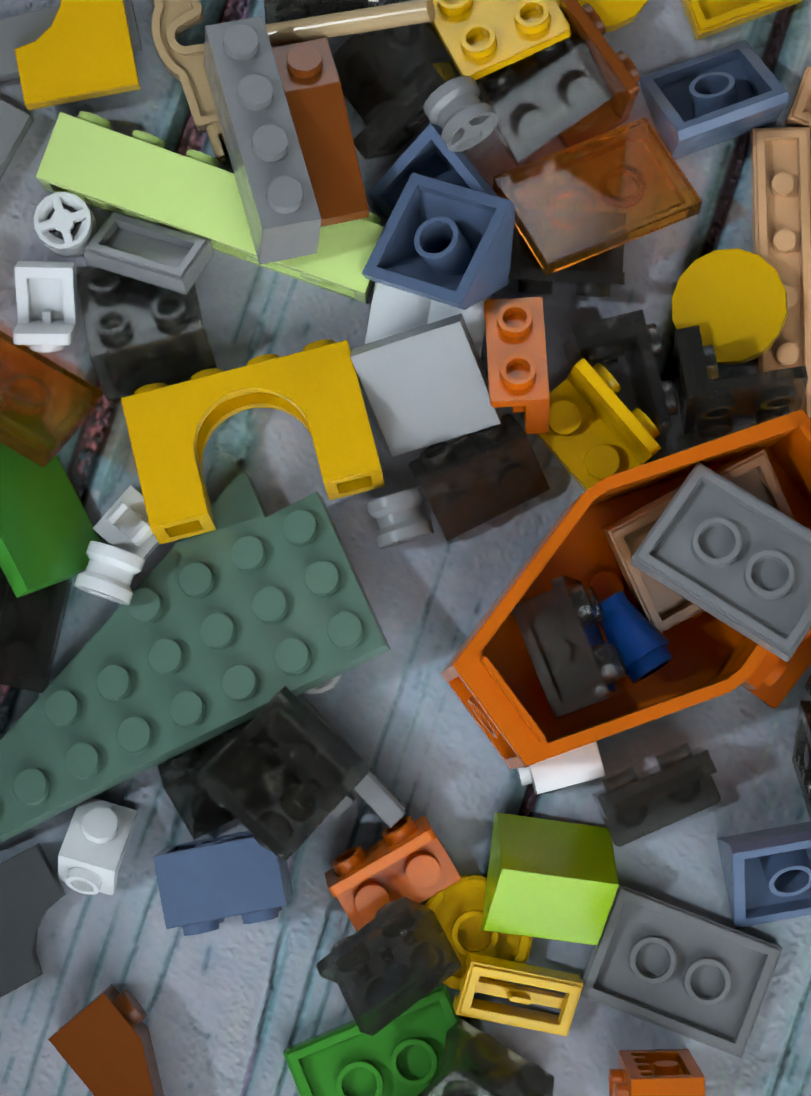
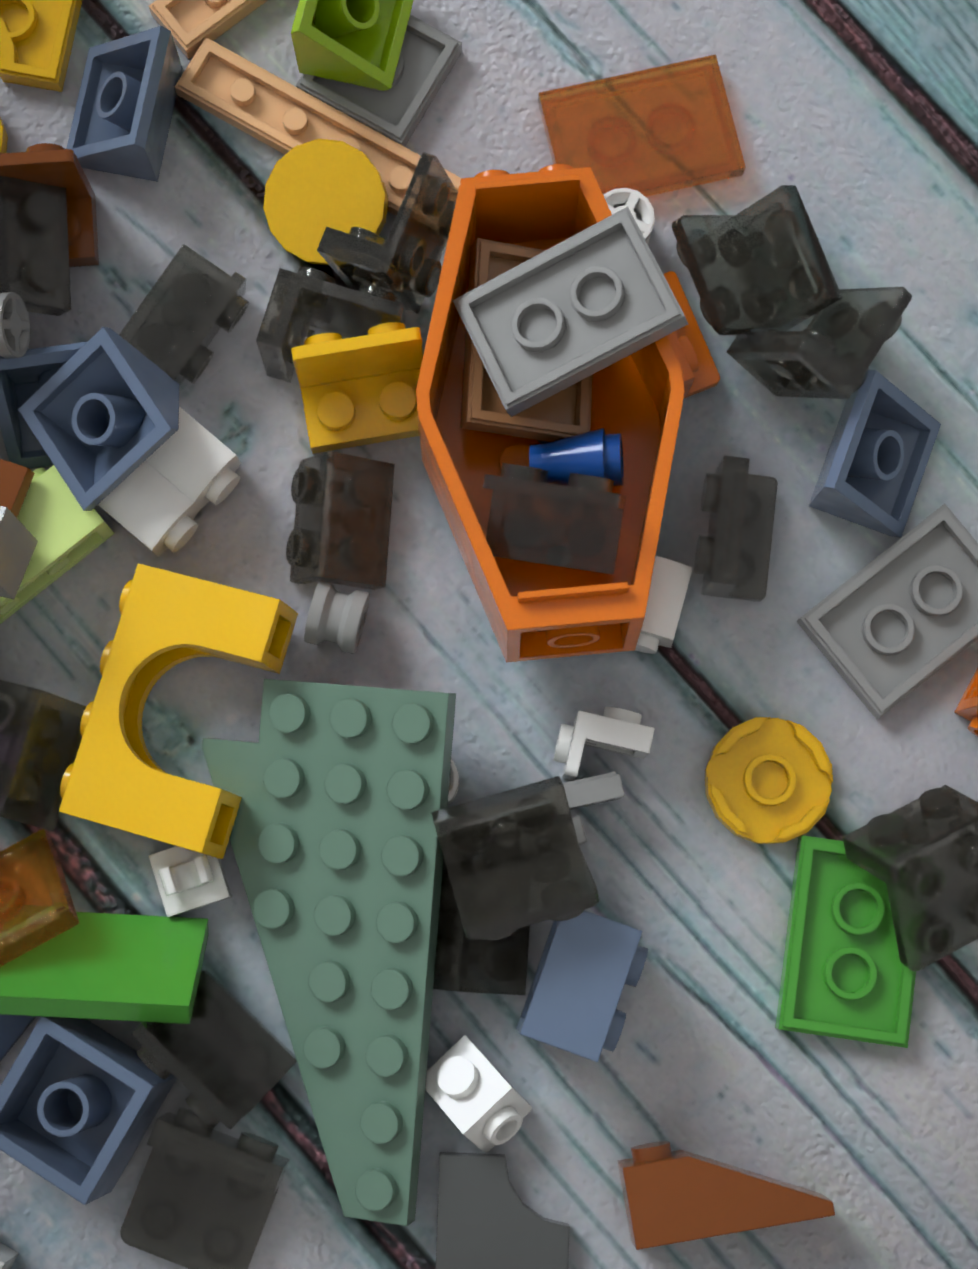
camera: 65 degrees left, 5 degrees down
(109, 572) = (220, 922): white wheel -> none
(390, 963) = (753, 873): clear smoke bracket -> none
(402, 864) = (668, 824): orange bracket -> none
(426, 385) = (226, 516): light grey tile -> none
(439, 789) = (614, 731): none -> white bracket
(518, 359) = (257, 413): orange bracket -> none
(520, 973) = (815, 805): yellow tile -> none
(549, 879) = (759, 678): lime slope -> none
(597, 195) = (148, 255): clear orange tile -> none

